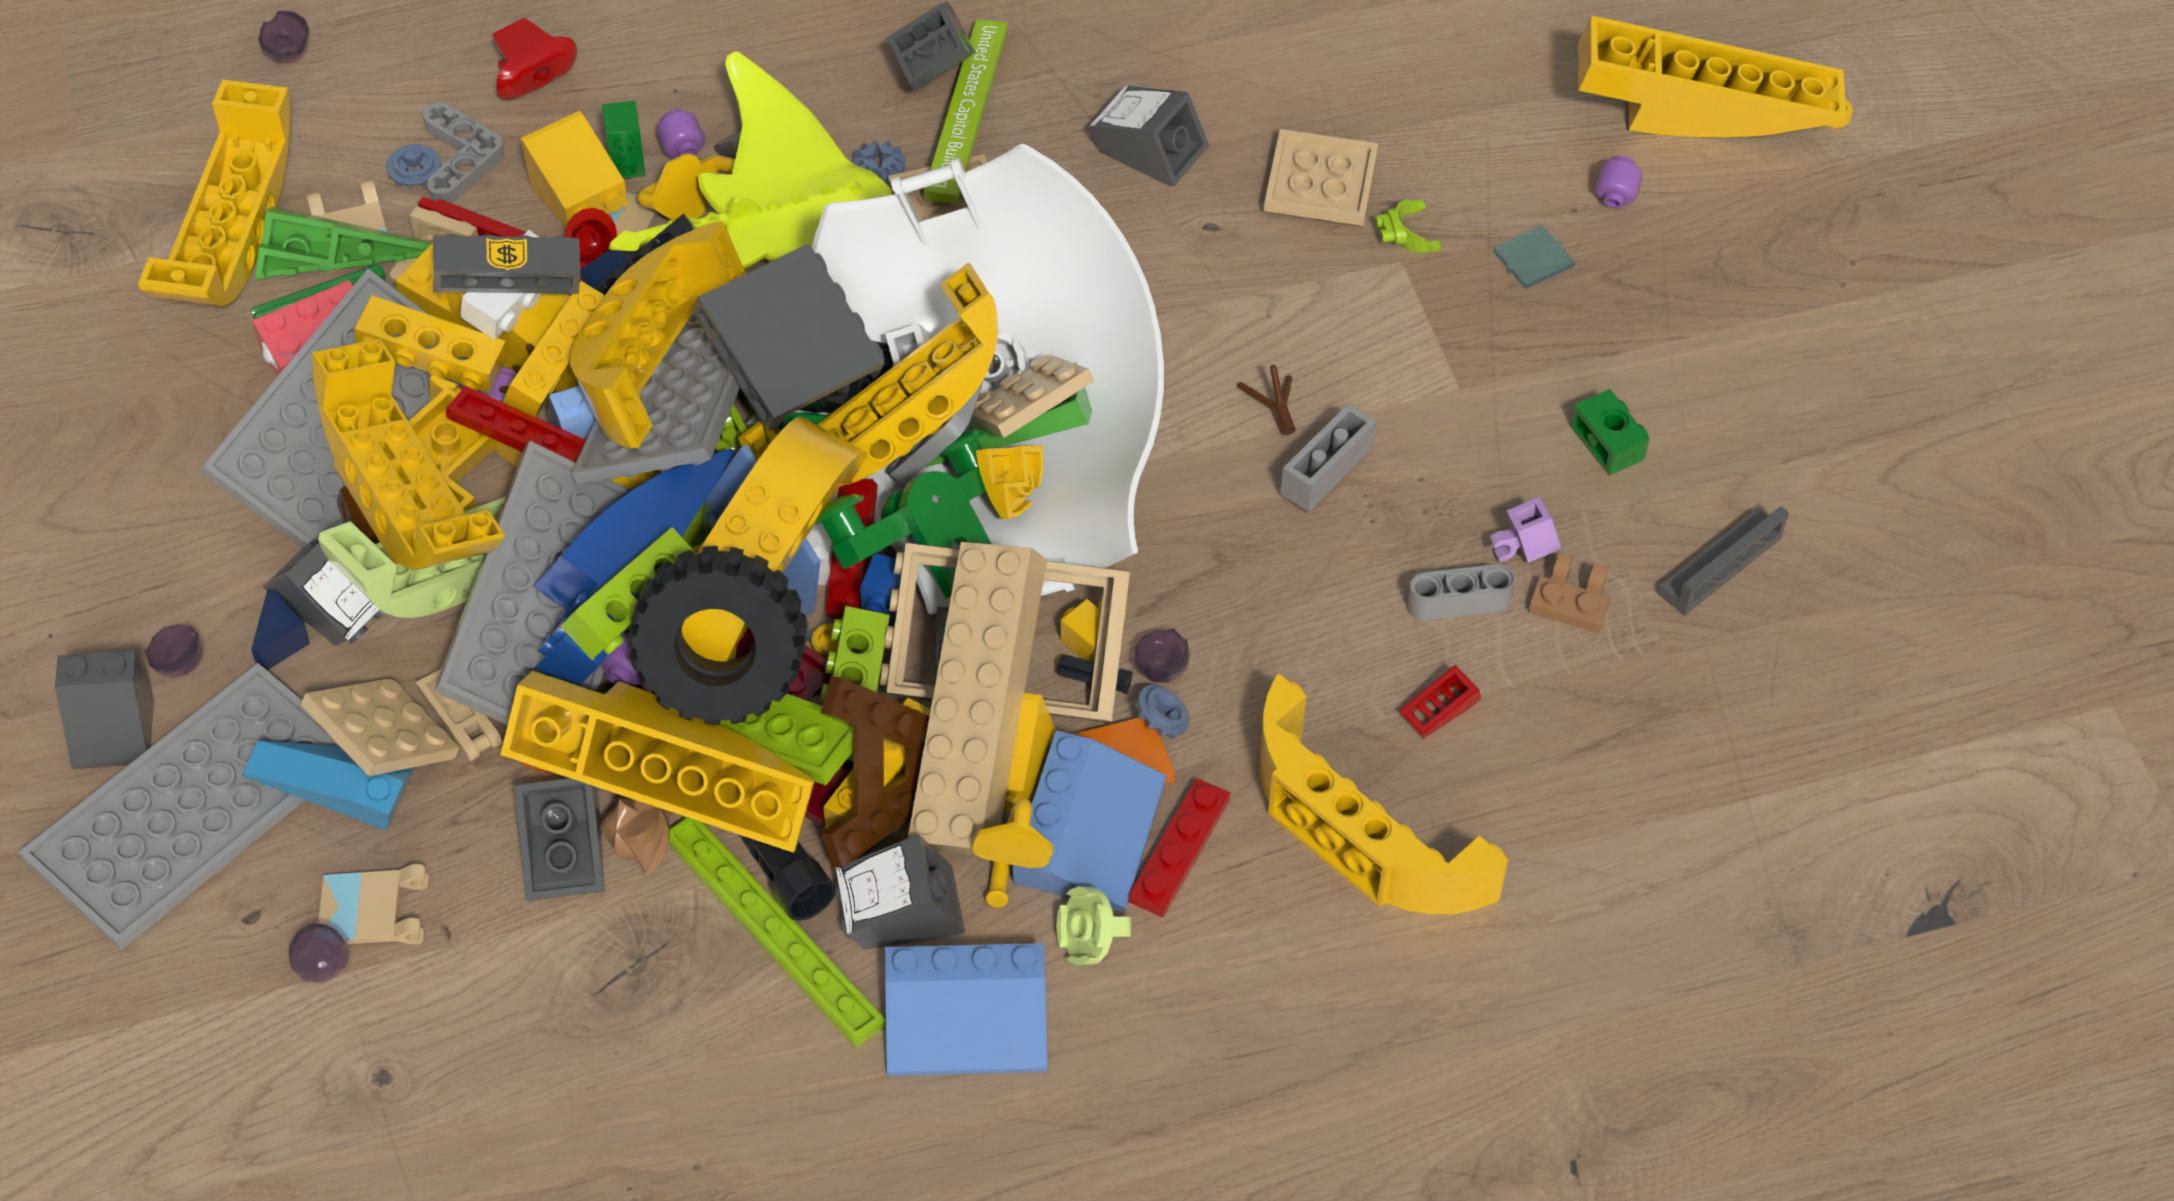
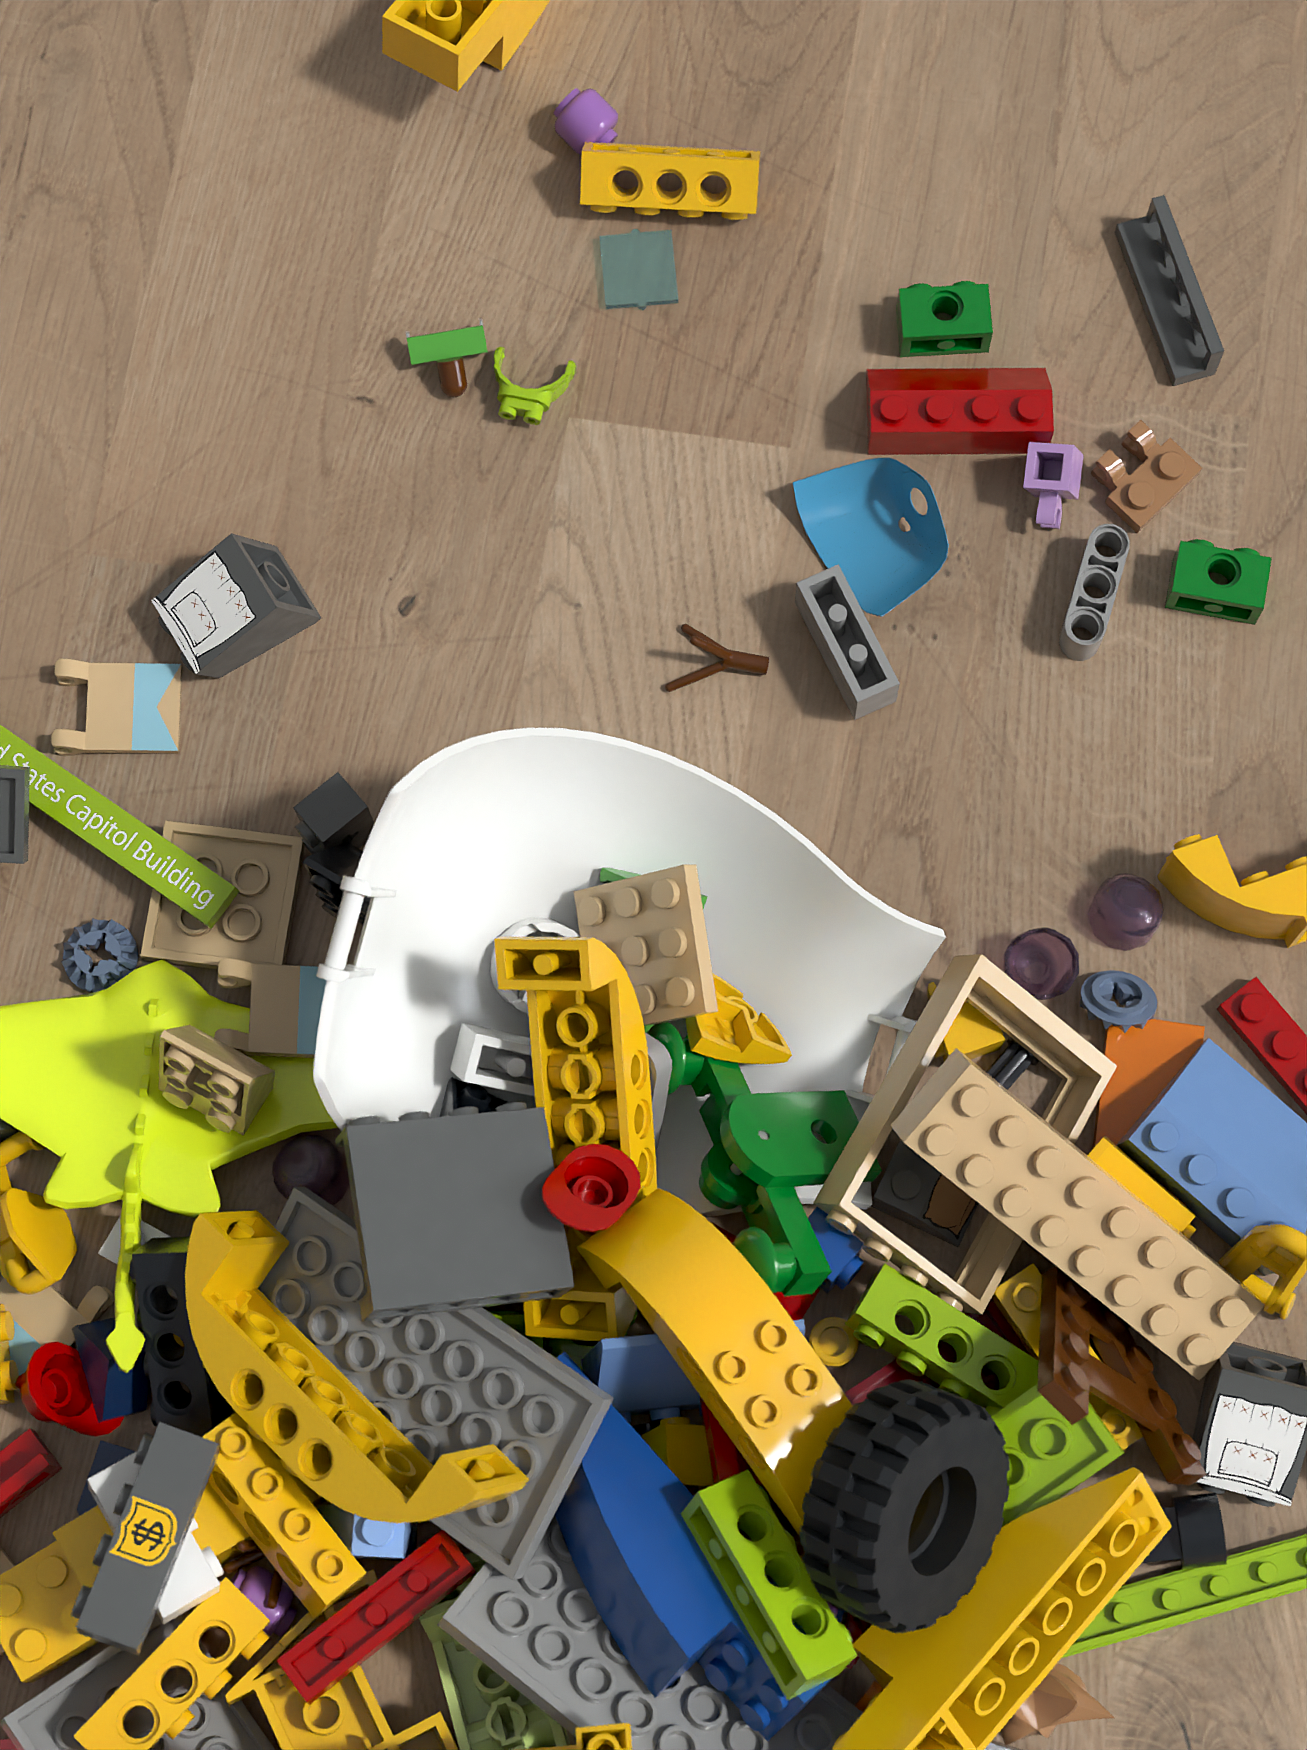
camera: 60 degrees left, 20 degrees up
(818, 189) = (212, 1078): none -> tan slope
(840, 403) = (592, 1187): none -> red piece
(1051, 113) = (127, 708): none -> tan flag
(1234, 699) = (1126, 911): none -> hair
(1321, 177) = (404, 442): tan plate -> none
(1400, 170) = (448, 349): none -> bright green piece
(1422, 444) = (854, 523): none -> dark azure piece
(1452, 678) = (1241, 670): red slope -> none
(1517, 682) = (1196, 593): none -> green brick
(1546, 464) = (957, 410): none -> red slope
(1636, 272) = (691, 165): none -> yellow brick

